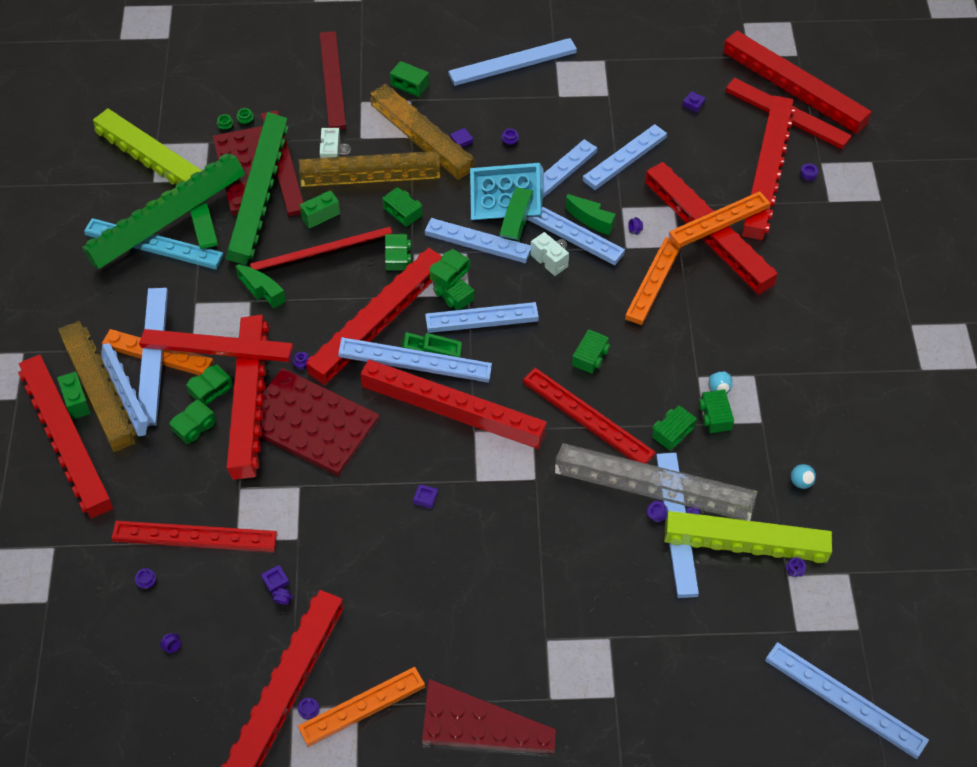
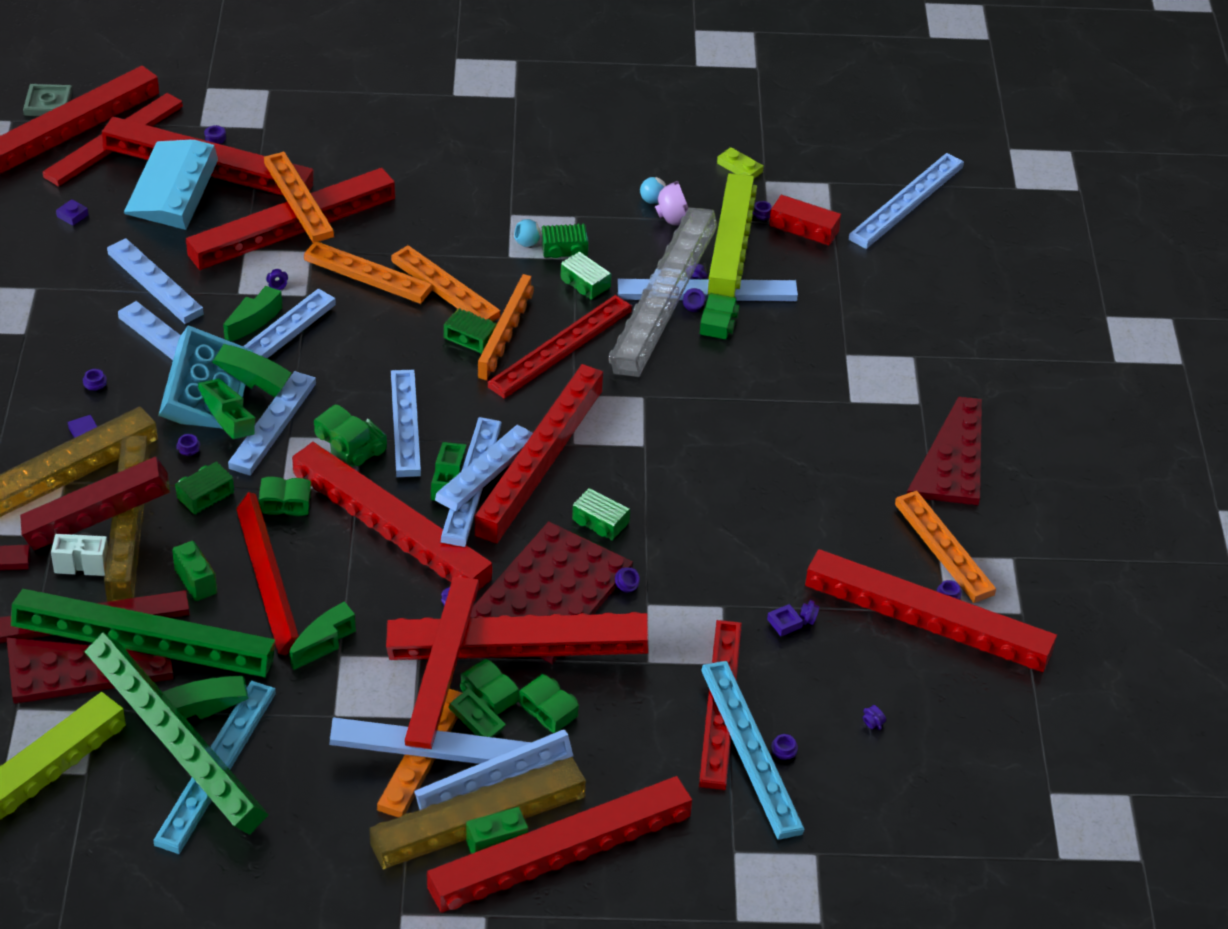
camera: 90 degrees left, 10 degrees down
(142, 554) = (752, 750): none -> medium azure tile
(177, 381) = (476, 715): none -> green plate
(318, 468) = (627, 579): none -> dark purple plate
(364, 142) = (95, 503): none -> dark red brick
(386, 448) = (600, 514): none -> brick
(421, 363) = (483, 469): none -> light blue plate
(425, 496) = (666, 487): dark purple tile -> none
(447, 194) = (188, 445): none -> dark purple plate
(474, 204) = (227, 408): none -> green slope
(550, 252) = (314, 351): light aqua piece -> none
(601, 374) = (504, 327): none -> orange plate
(637, 529) = (718, 316): none -> green brick
(645, 332) = (444, 284): none -> orange plate
(726, 148) = (173, 182): none -> medium azure slope
(780, 492) = (672, 204): none -> lavender cylinder
(785, 601) = (805, 219): none -> red brick
(826, 69) = (44, 98): none -> sand green tile
(865, 550) = (739, 163): none -> lime plate

